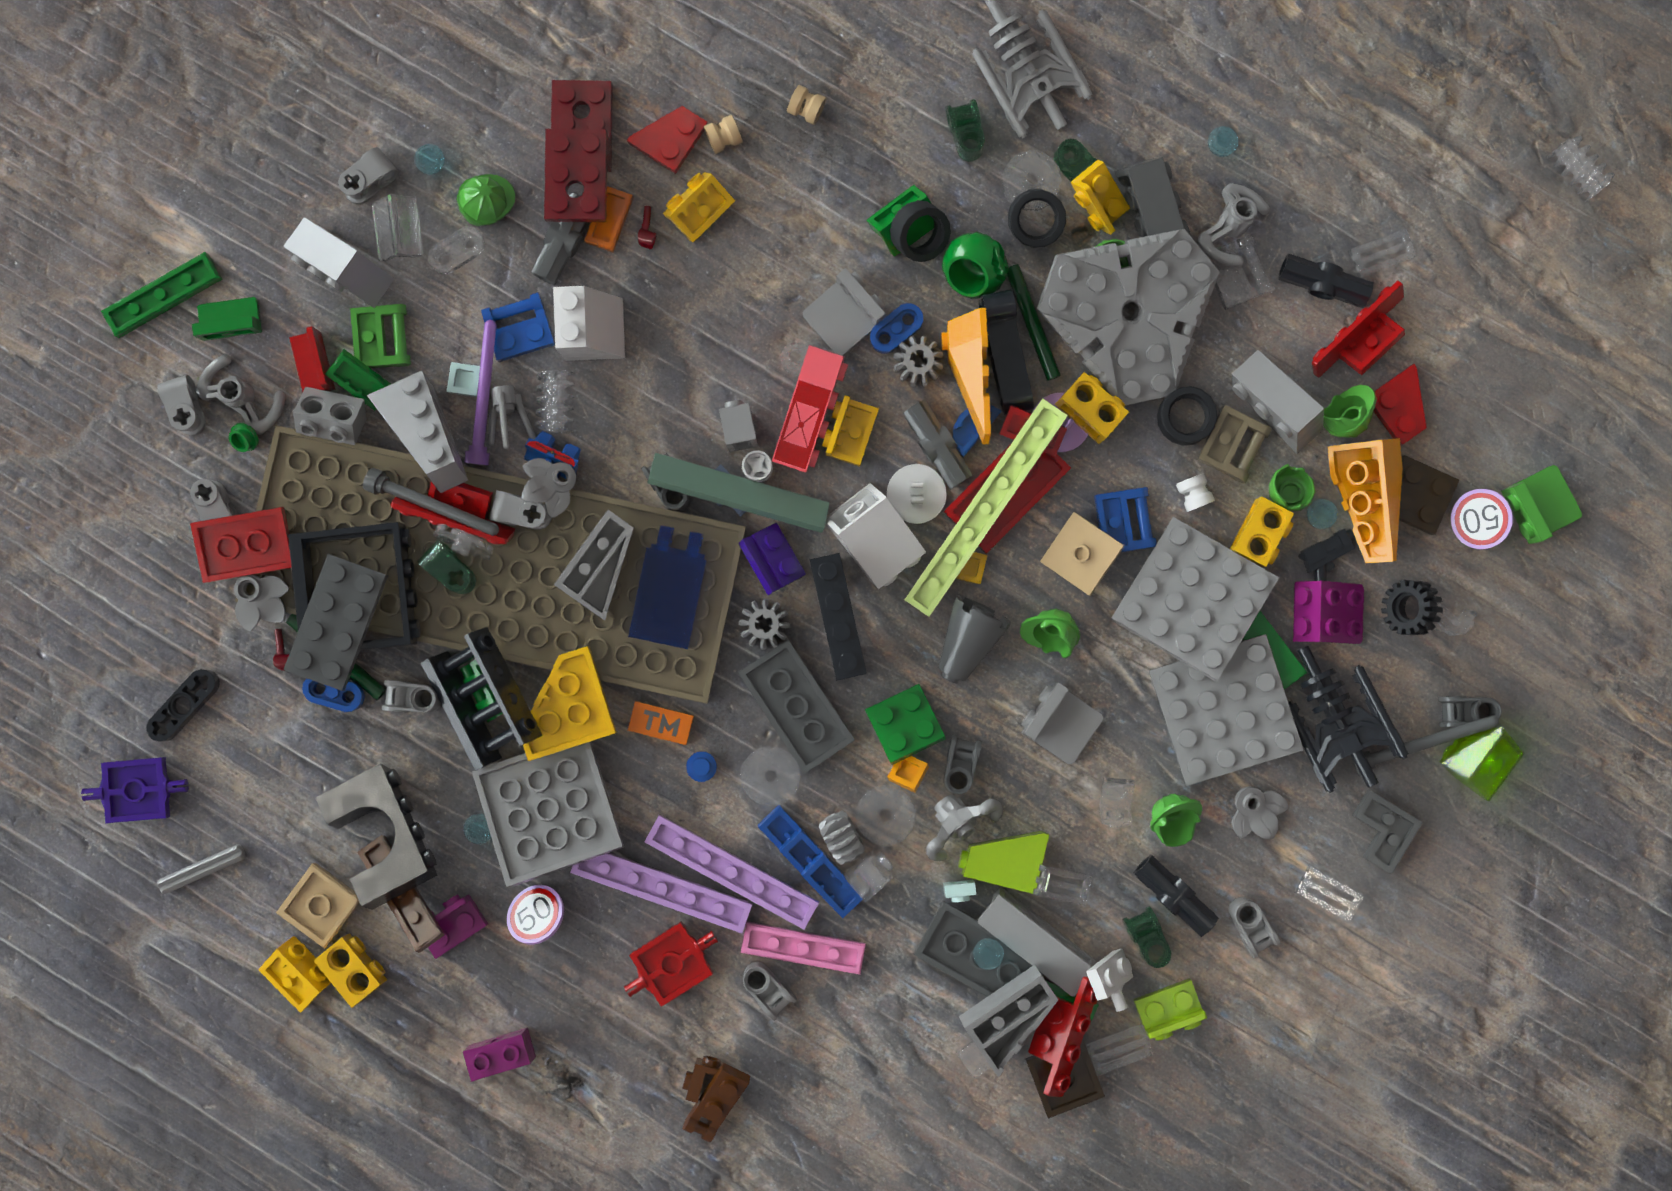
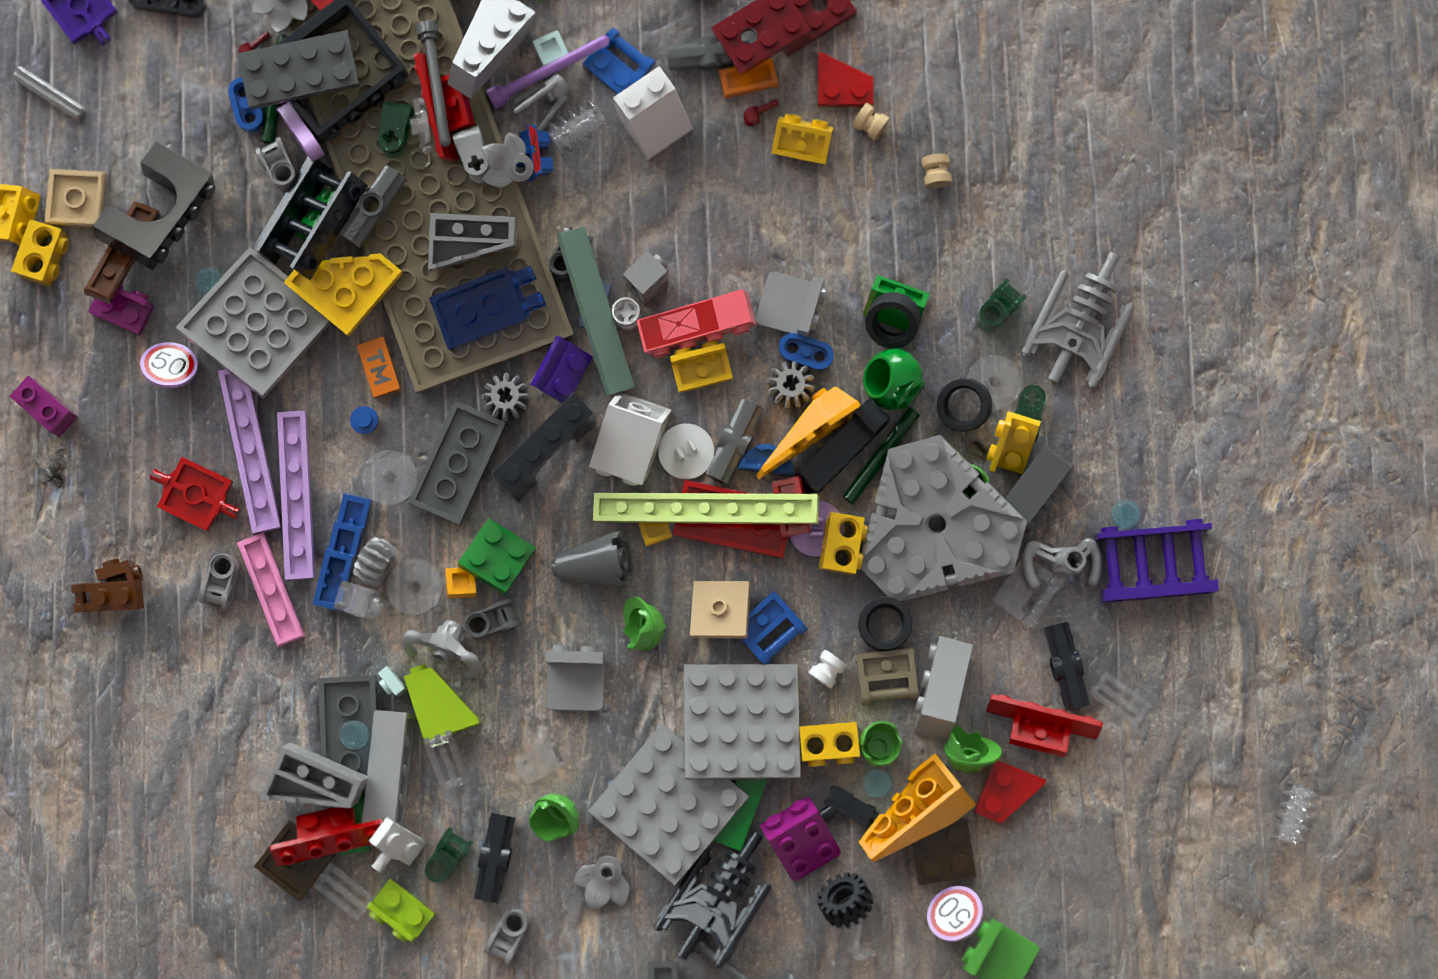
camera: 65 degrees right, 5 degrees down
(394, 657) = (300, 132): none -> lavender beam
(501, 616) = (382, 191): none -> dark grey piece
(1313, 141) = (1172, 584): none -> dark purple fence

